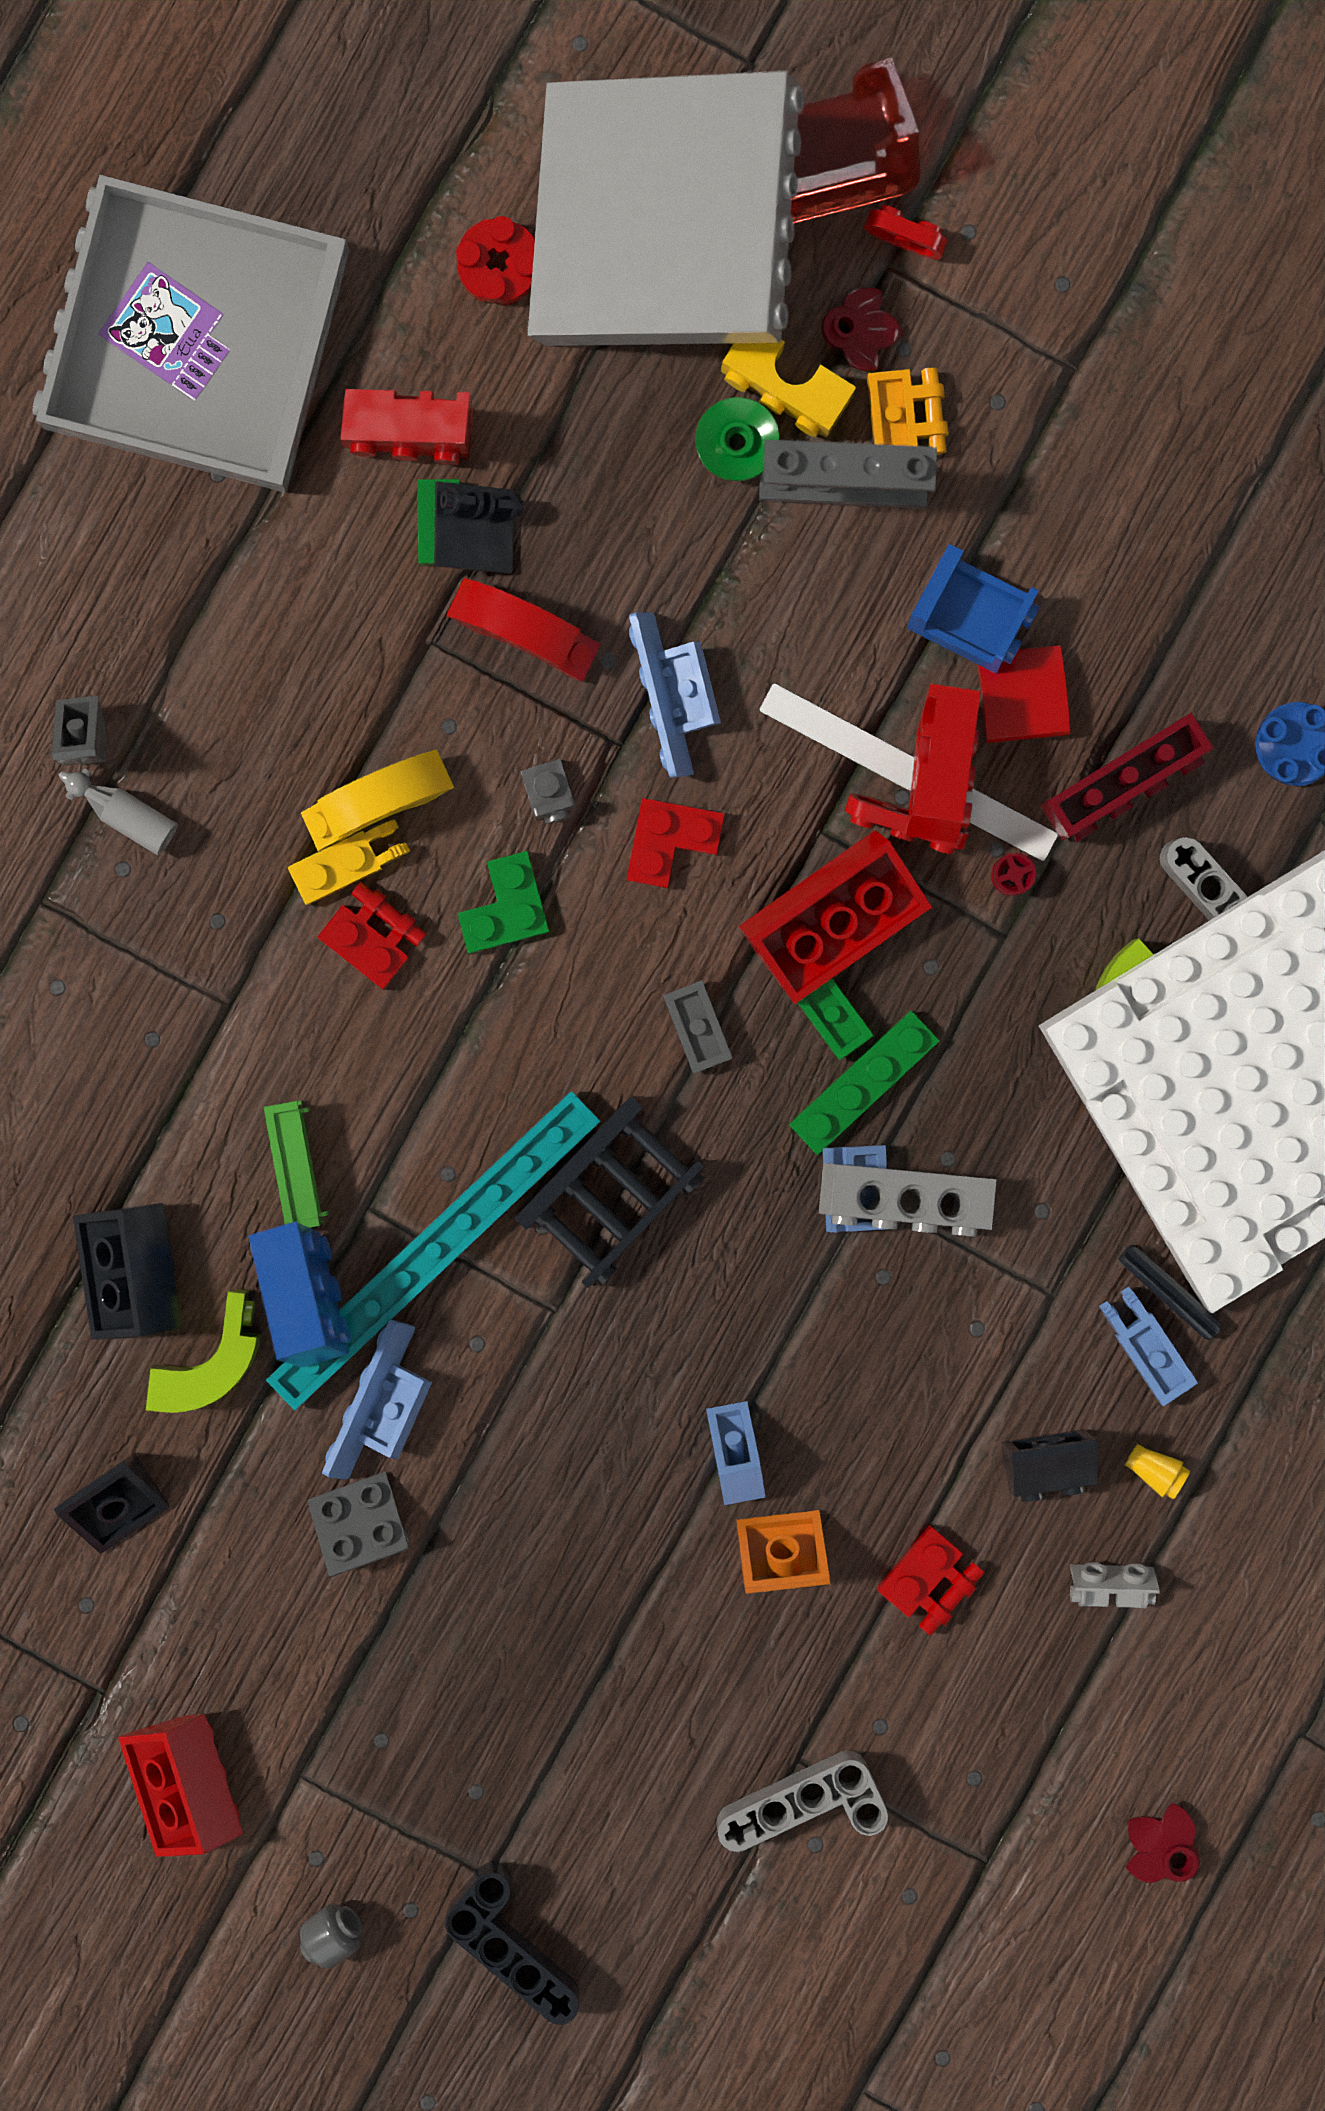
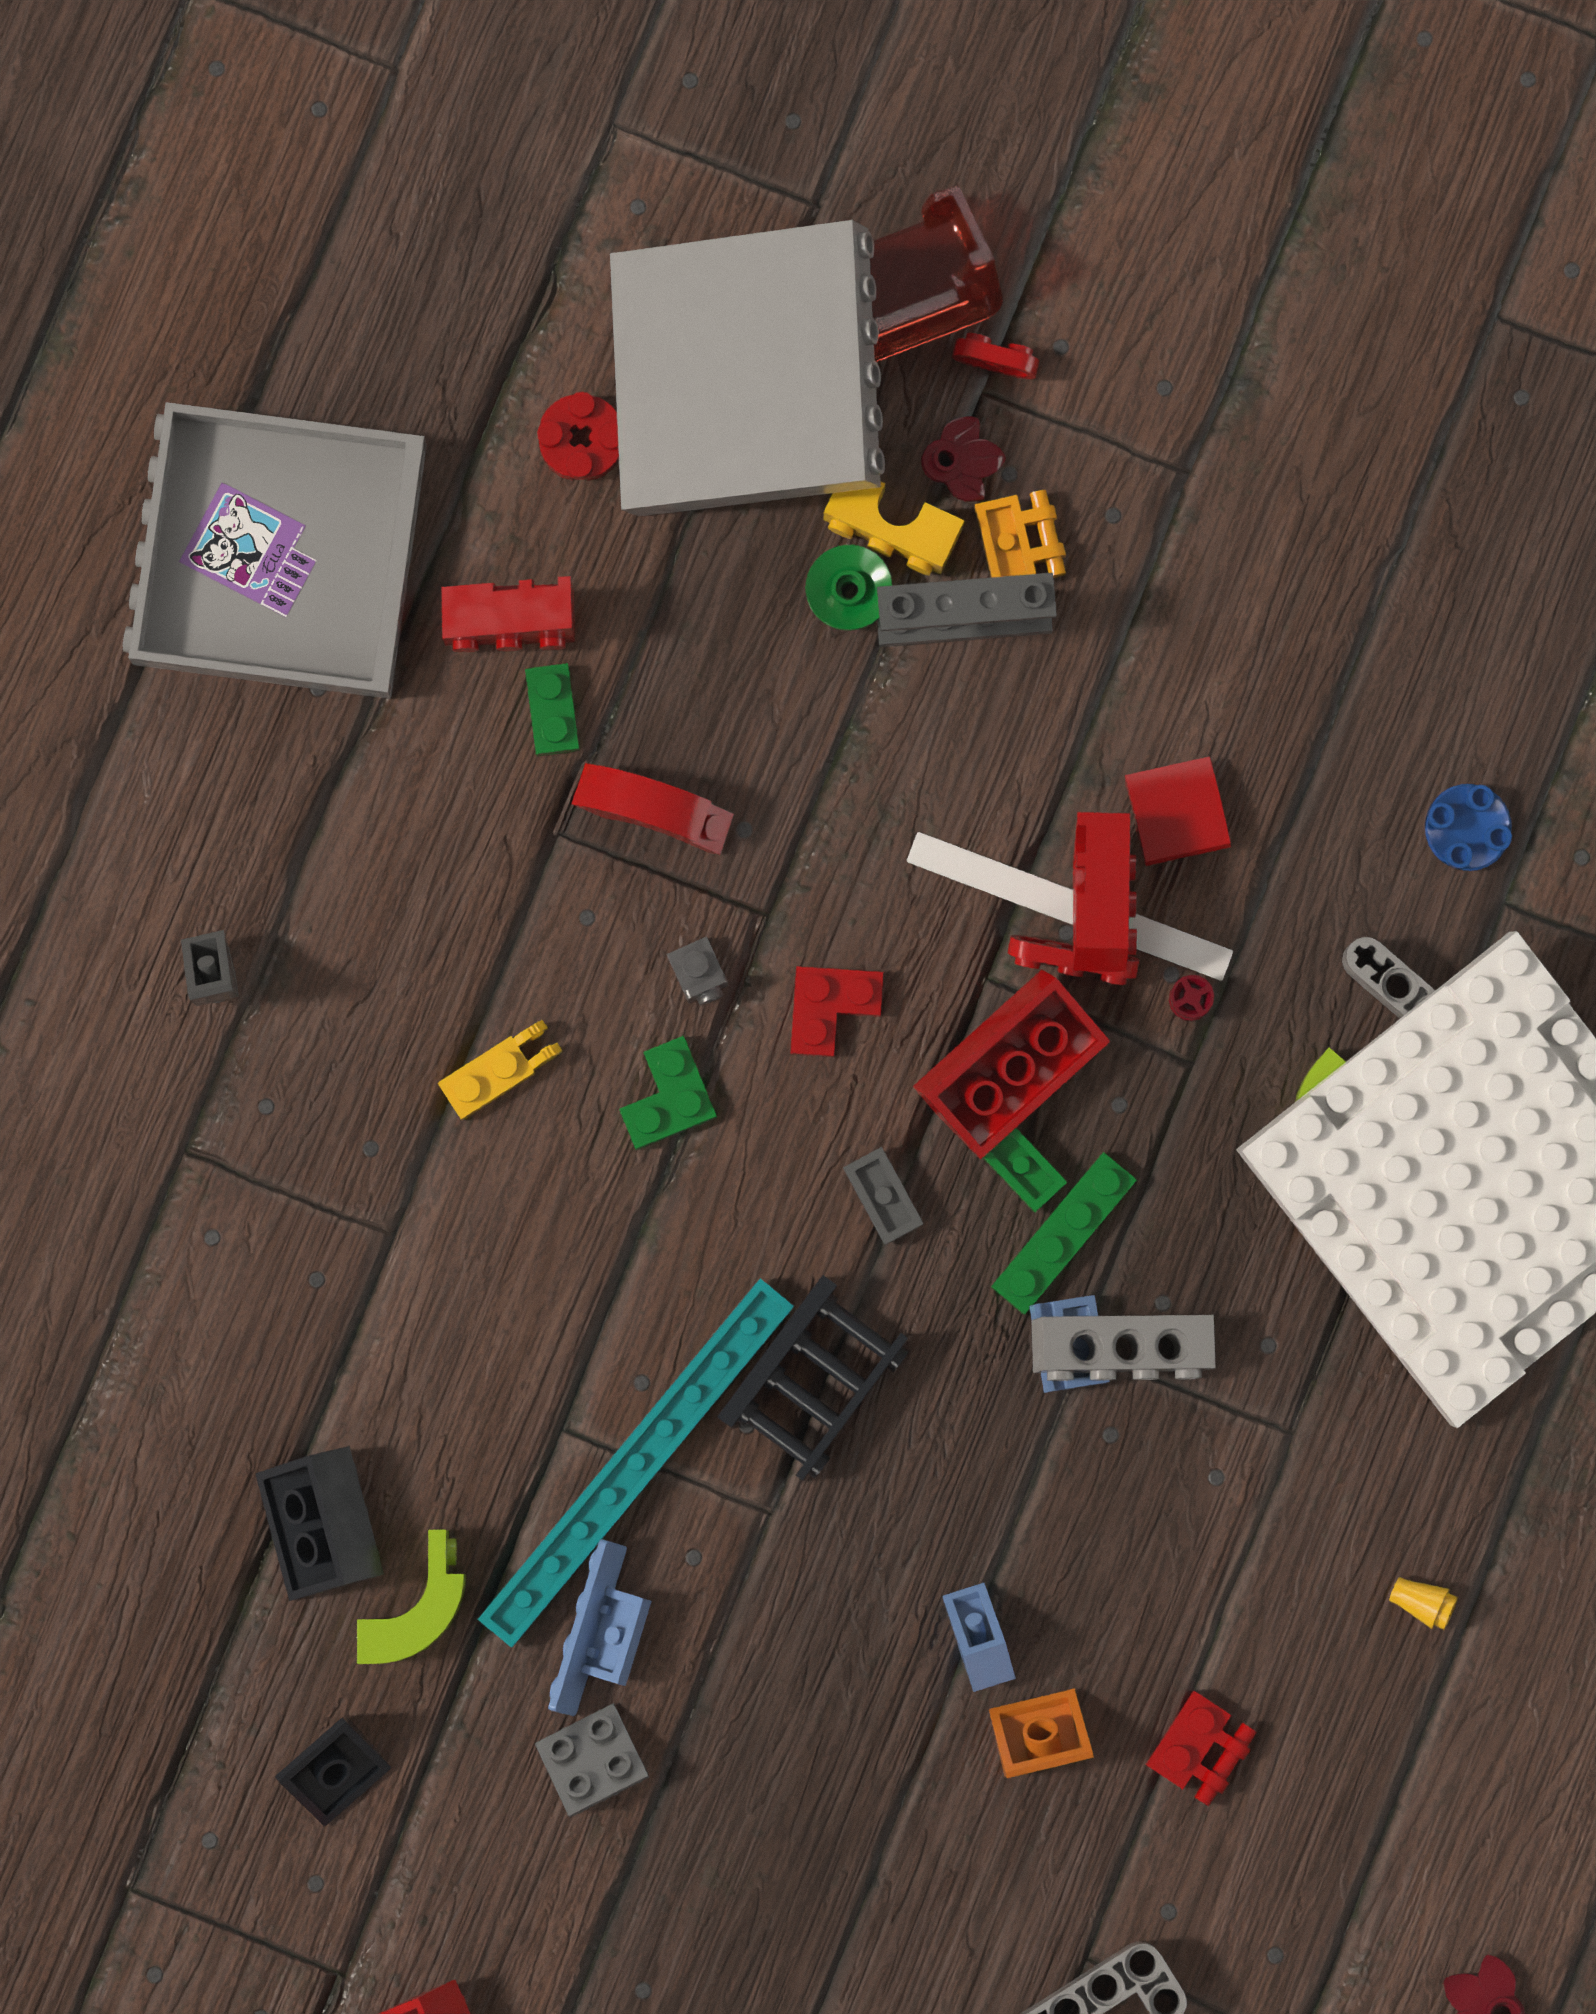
camera: 10 degrees left, 5 degrees down
(122, 812) = (260, 1046): light grey wheel -> none
(293, 1164) = (480, 1391): bright green container -> none
(300, 1294) = (505, 1521): blue brick -> none
(364, 946) = (525, 1154): red plate -> none
(376, 797) = (521, 999): yellow arch -> none
(474, 527) = (590, 710): black hinge -> none
(677, 691) = (819, 851): medium blue bracket -> none
(972, 612) = (1113, 733): blue panel -> none
(1050, 1464) = (1310, 1608): black slope -> none
(1127, 776) = (1294, 882): dark red brick -> none
(1132, 1584) = (1413, 1724): light grey hinge -> none
(1150, 1350) = (1399, 1476): medium blue hinge -> none
(1170, 1292) = (1413, 1413): black axle -> none

